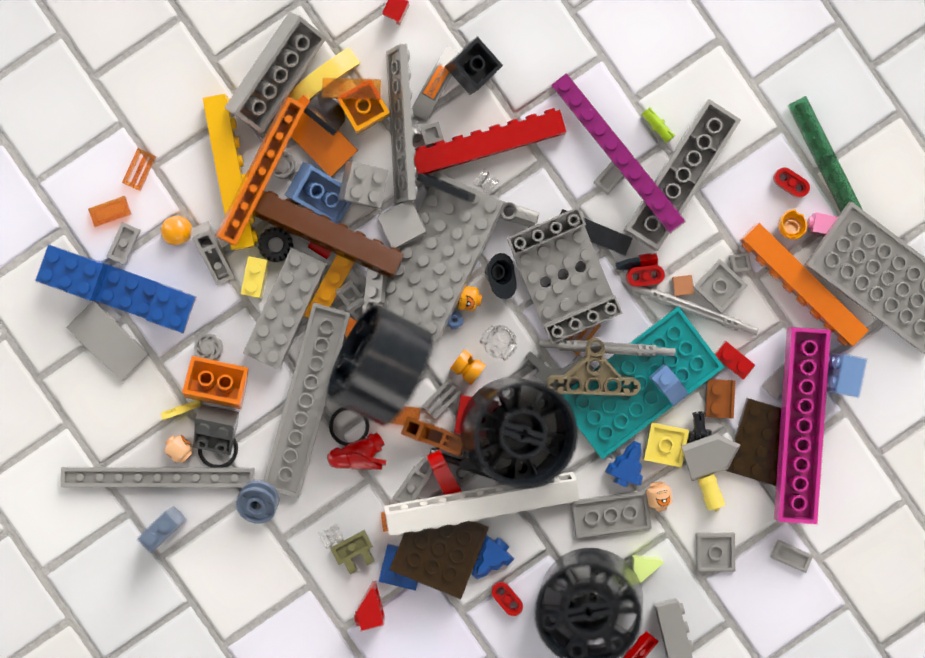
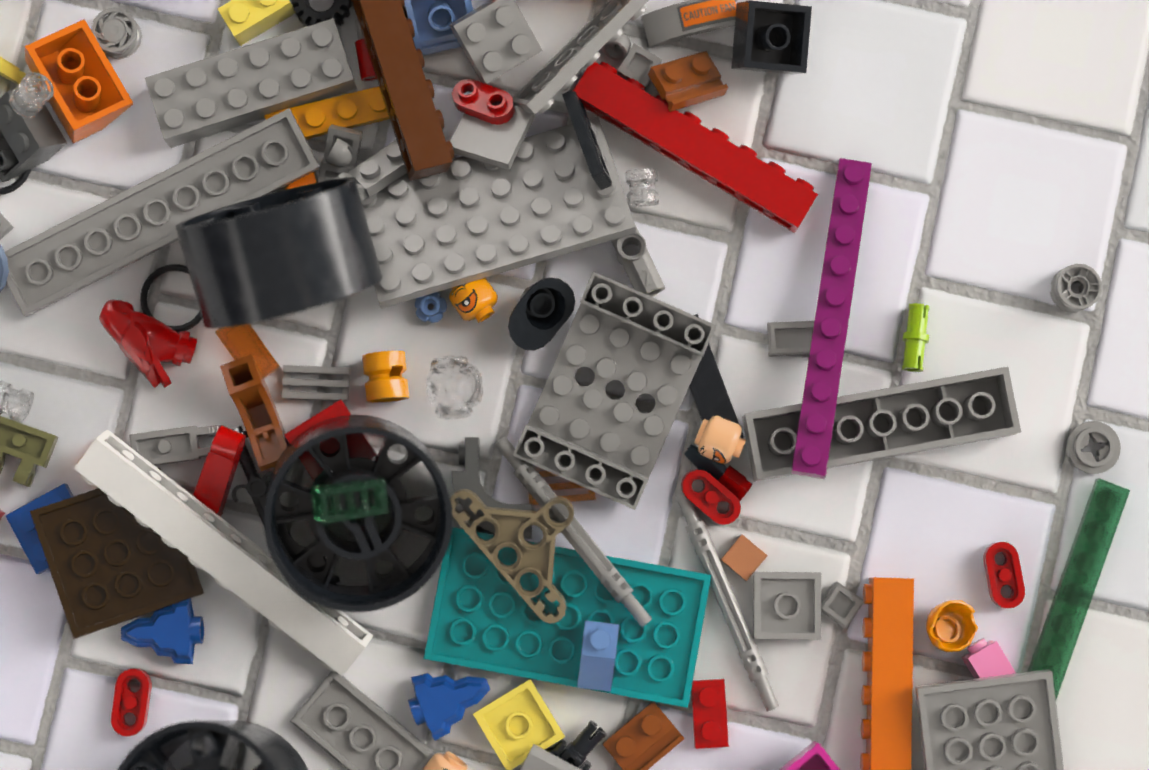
camera: 45 degrees right, 5 degrees down
(207, 409) = (31, 95): none -> clear wheel
(352, 298) = (340, 154): none -> light grey hinge
(385, 217) = (480, 101): none -> red plate
(458, 119) = (687, 81): none -> dark orange plate
(515, 442) = (320, 494): none -> clear green slope
(626, 249) = (720, 439): none -> light nougat head
(704, 29) = (1089, 288): none -> light grey wheel
(782, 92) = (1100, 433): none -> light grey gear

